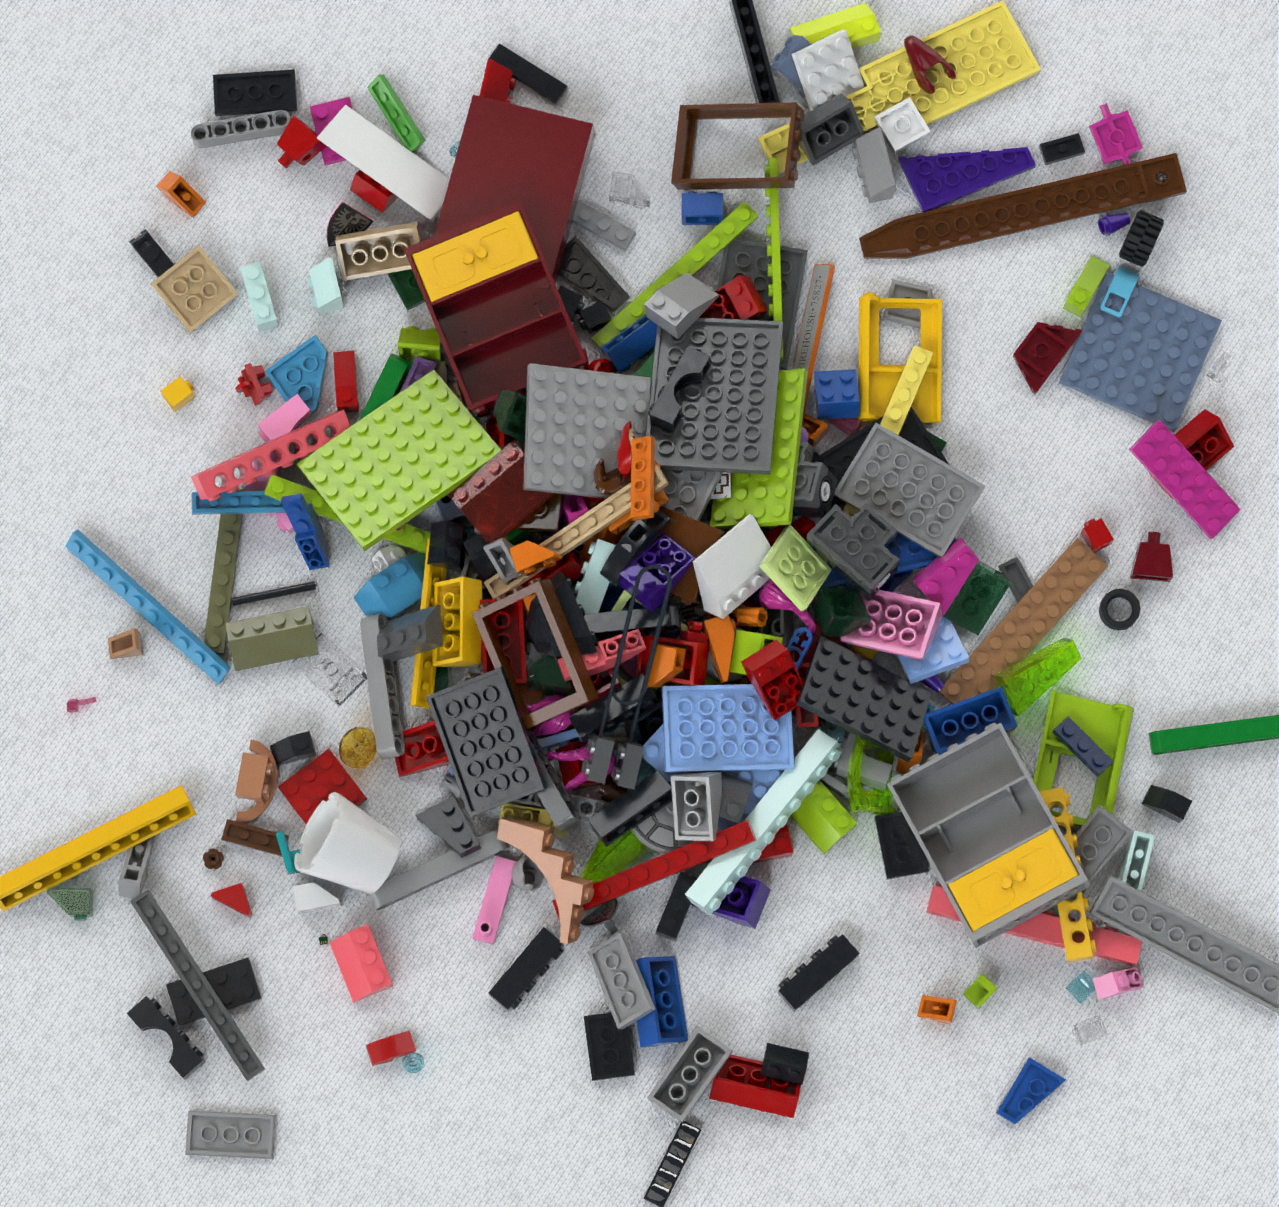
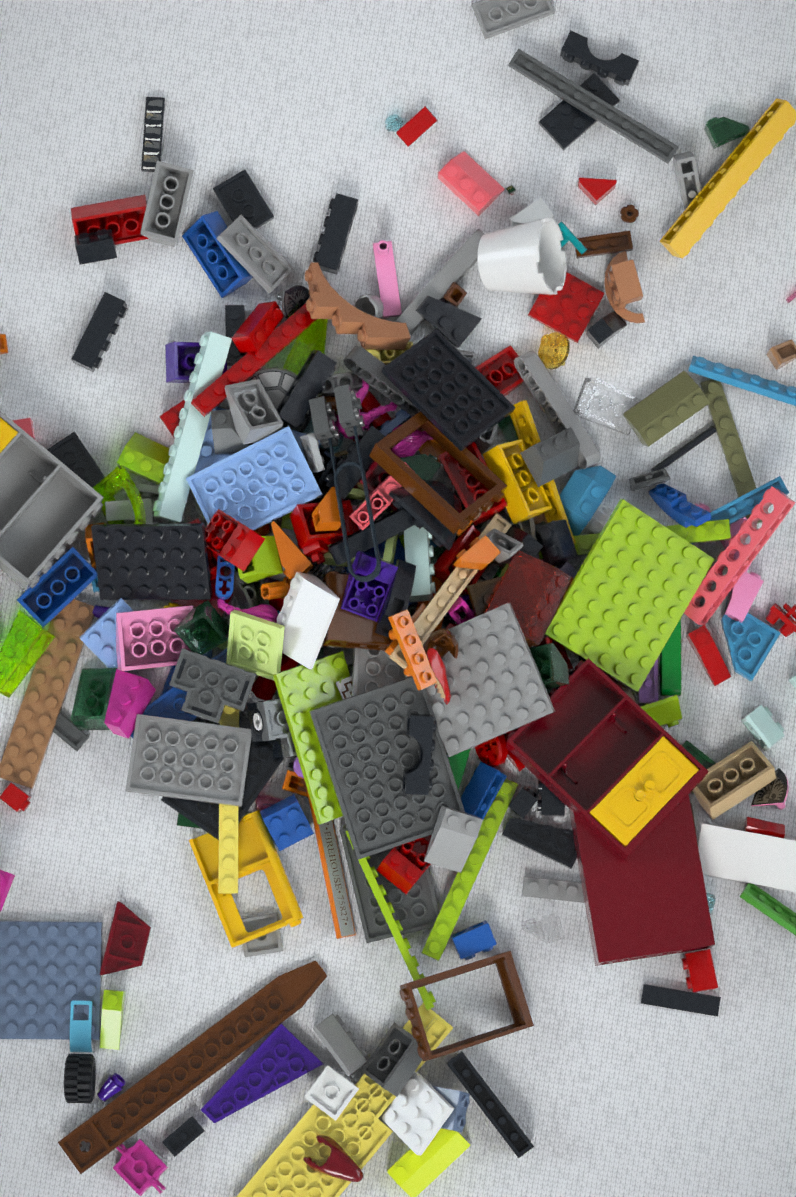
camera: 160 degrees right, 5 degrees up
(323, 575) = (648, 479): none -> dark grey slope
(432, 848) = (455, 295): none -> reddish brown slope
(651, 899) = (257, 327): none -> red brick
(654, 736) = (312, 453): none -> light grey plate

